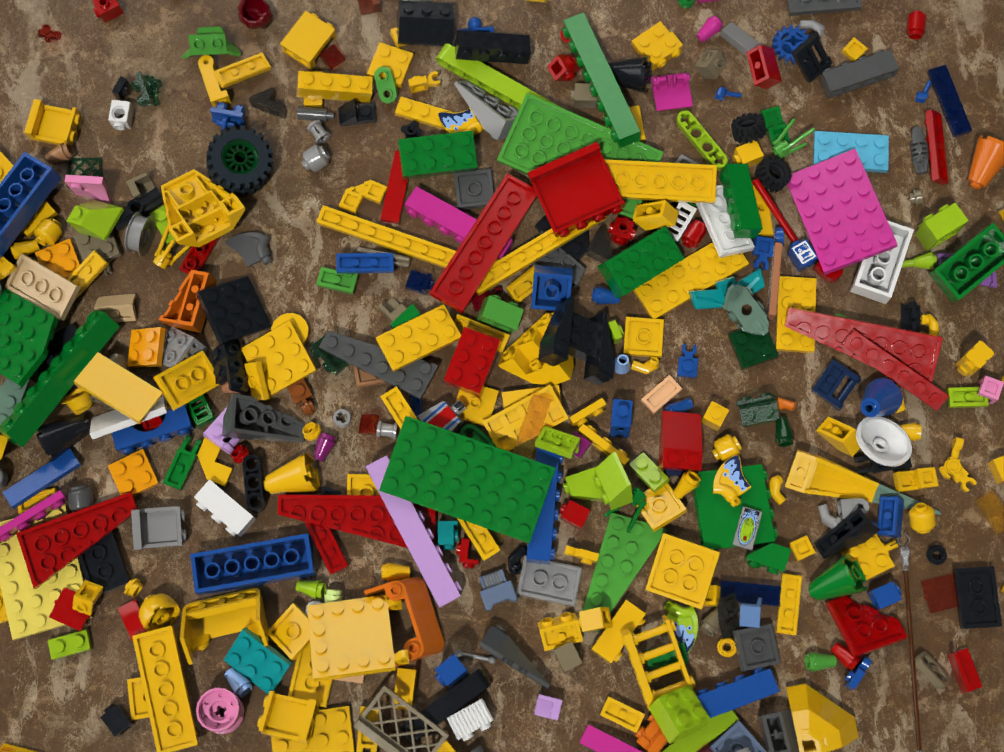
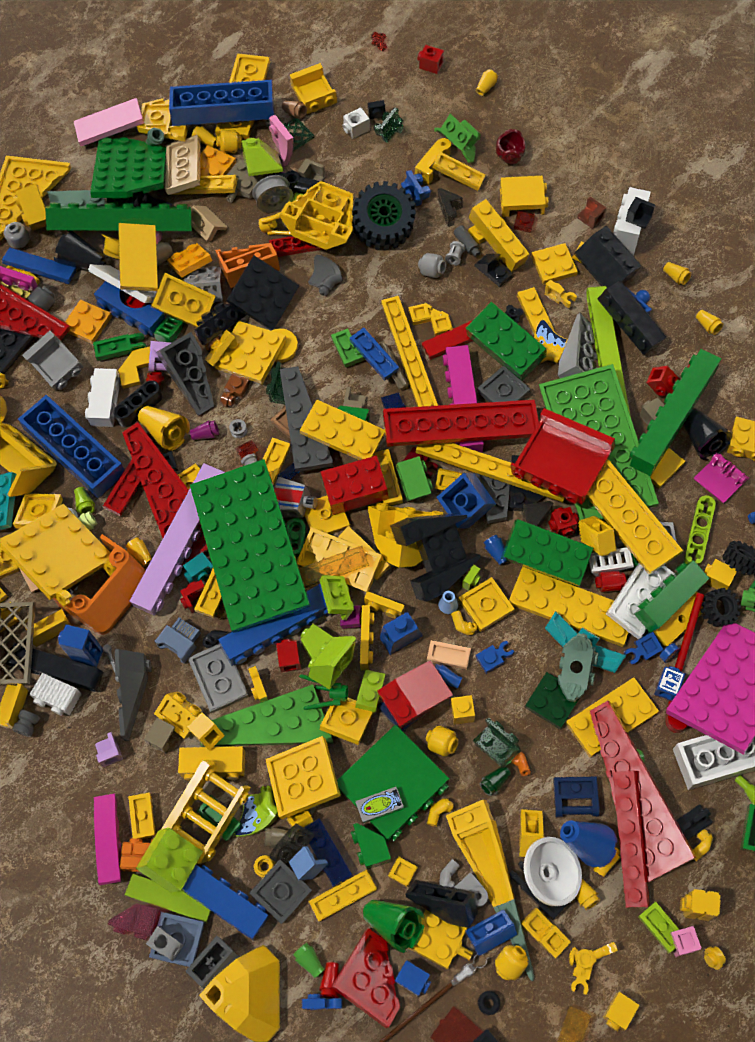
camera: 55 degrees right, 10 degrees down
(311, 431) = (210, 413): yellow plate -> none
(386, 84) = (534, 270): bright green plate -> none
(687, 483) = (381, 725): yellow cone -> none
(730, 481) = (411, 761): yellow arm -> none
(774, 281) = (624, 676): nougat tile -> none

